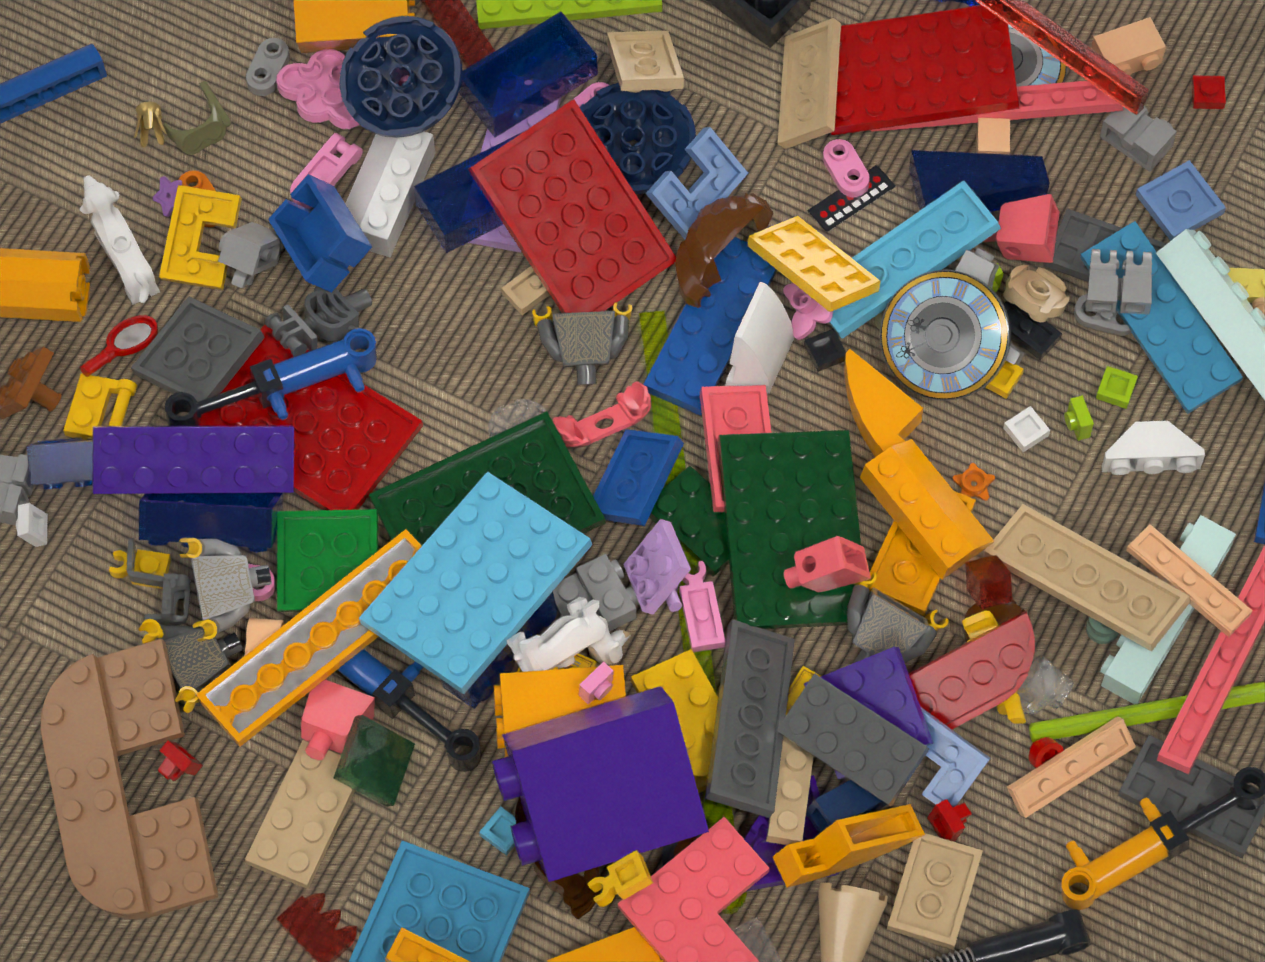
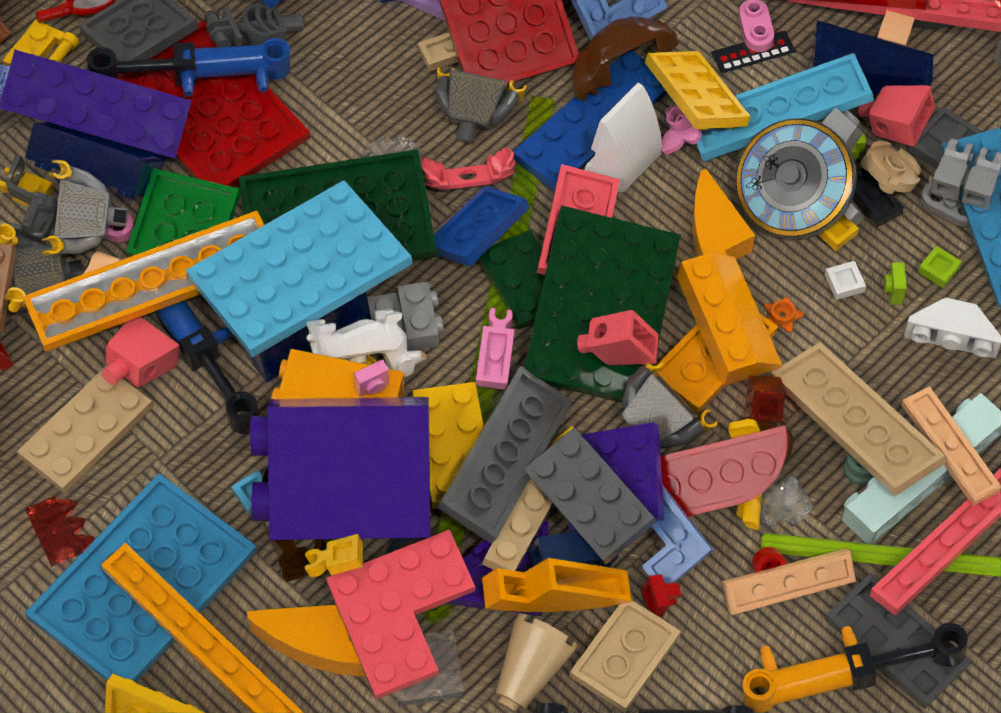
camera: 15 degrees right, 5 degrees down
(374, 760) = (159, 398): clear green plate -> none
(658, 569) = (467, 304): lavender plate -> none
(825, 350) = (685, 167): black plate -> none

